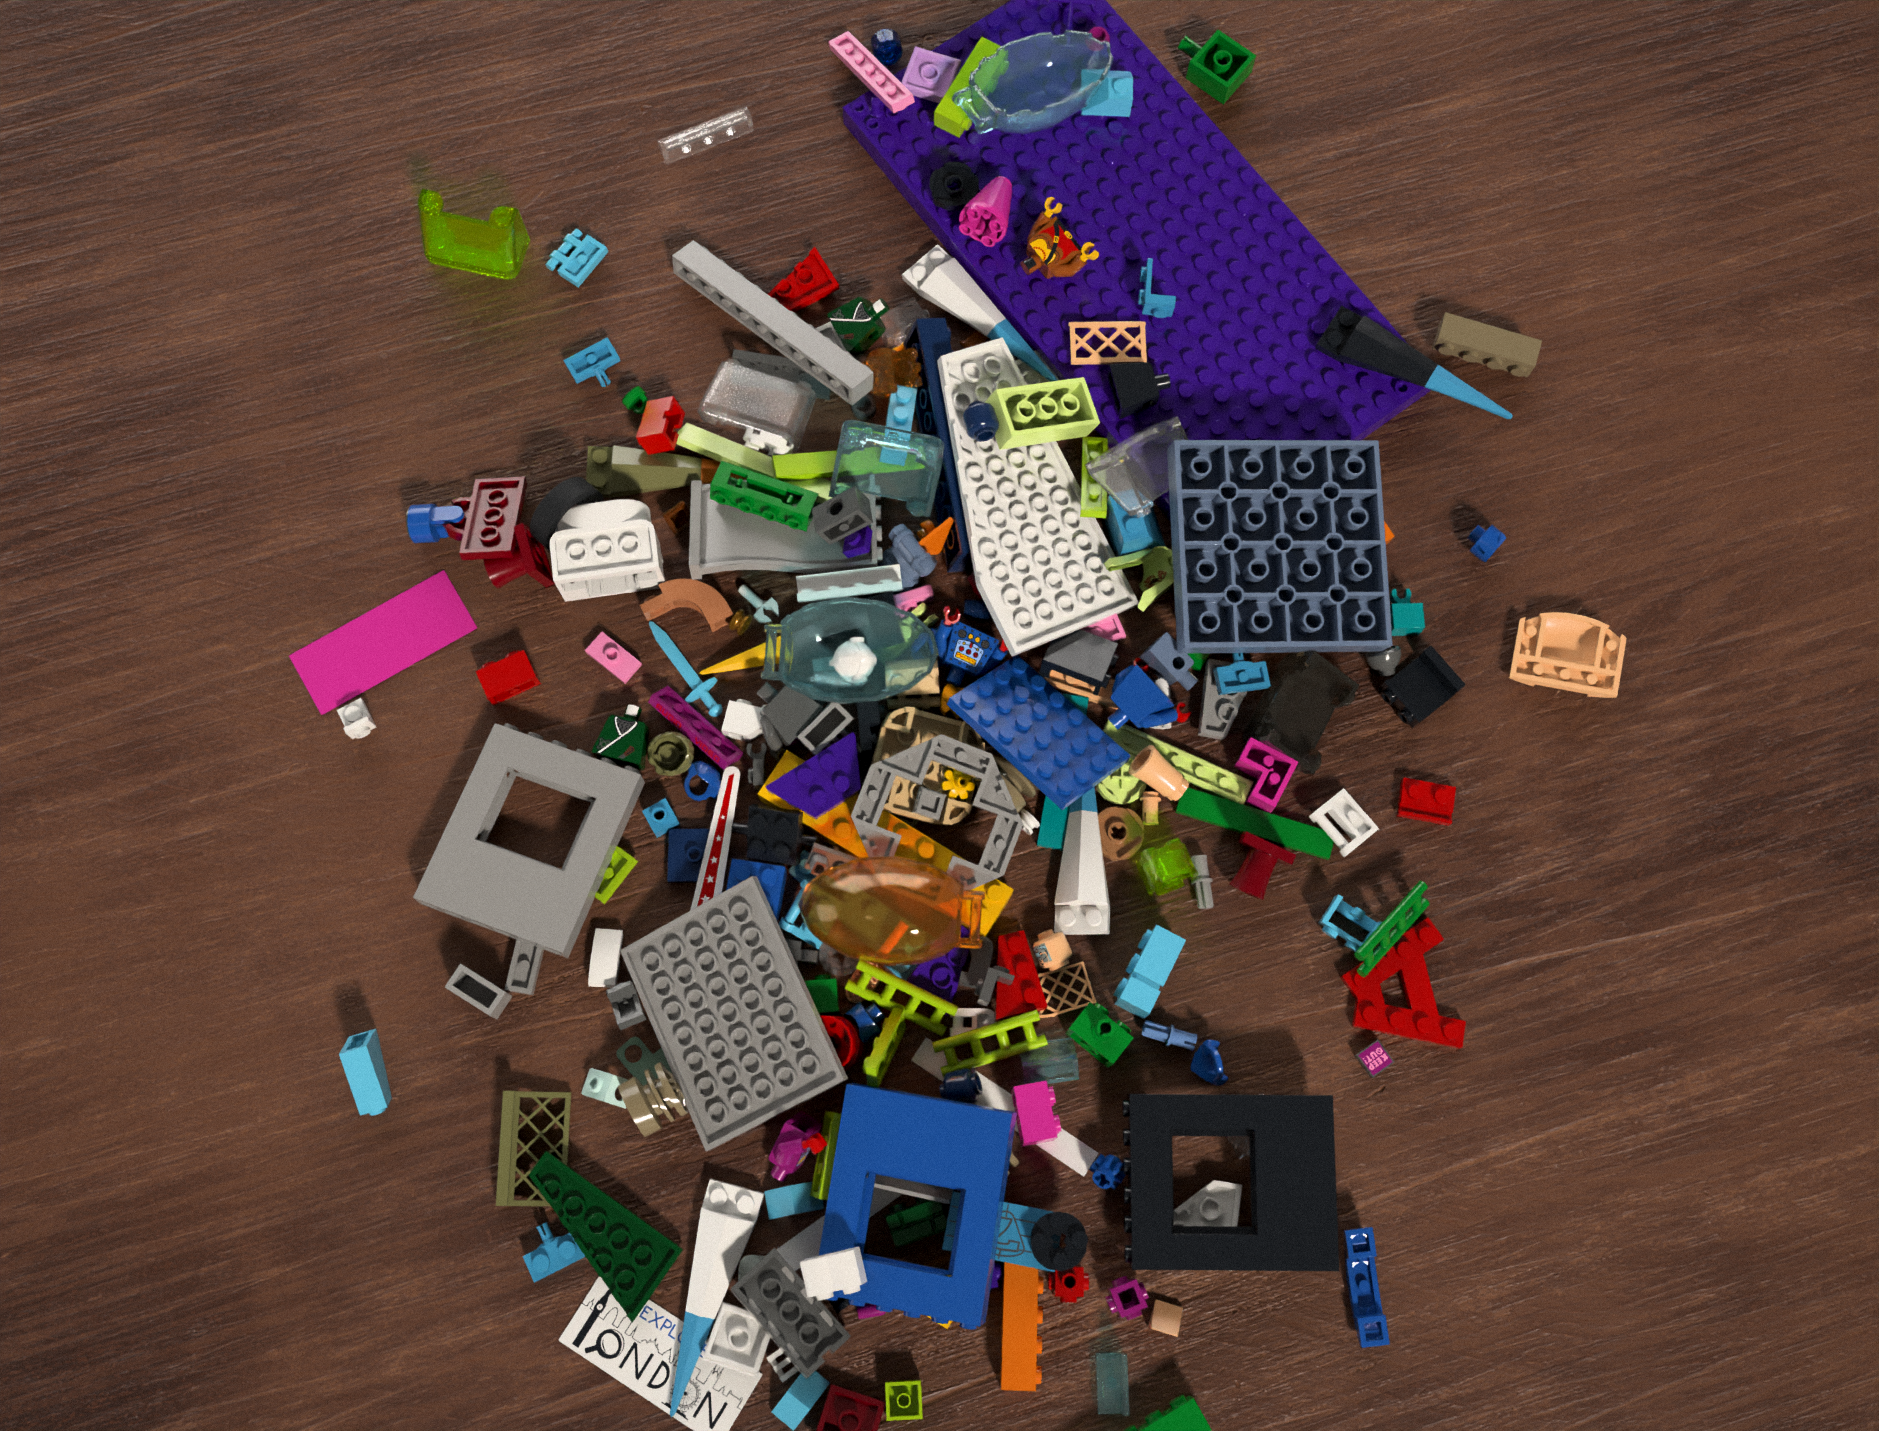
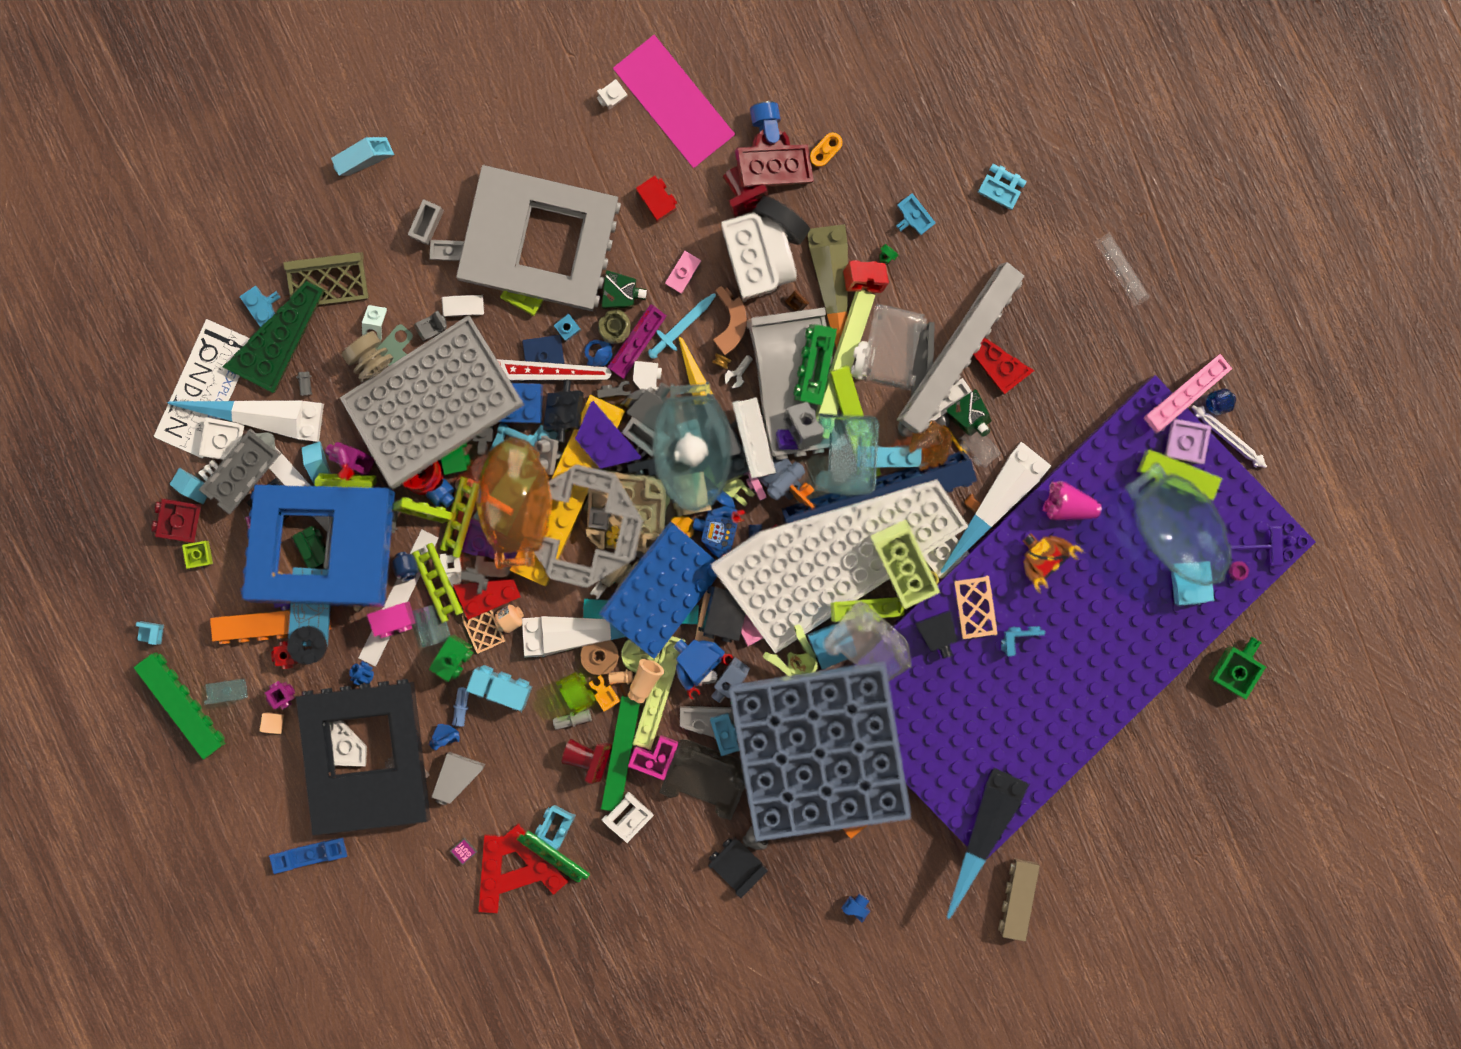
camera: 90 degrees right, 15 degrees up
(472, 244) = (994, 123): clear neon green windscreen -> none
(488, 459) = (825, 149): none -> light orange plate
(676, 1201) = (304, 383): none -> dark grey pin
(833, 1272) = (265, 497): white brick -> none
(945, 33) = (1229, 437): none -> white wheel
(953, 173) = (1097, 481): black plate -> none
(980, 421) = (887, 519): dark blue head -> none
(1170, 829) = (606, 695): none -> light orange plate
(1269, 1054) = (455, 776): none -> light grey slope
(1406, 617) = (789, 850): teal brick -> none
(1426, 801) = (653, 876): red plate -> none
(1568, 654) = (776, 973): light nougat slope -> none

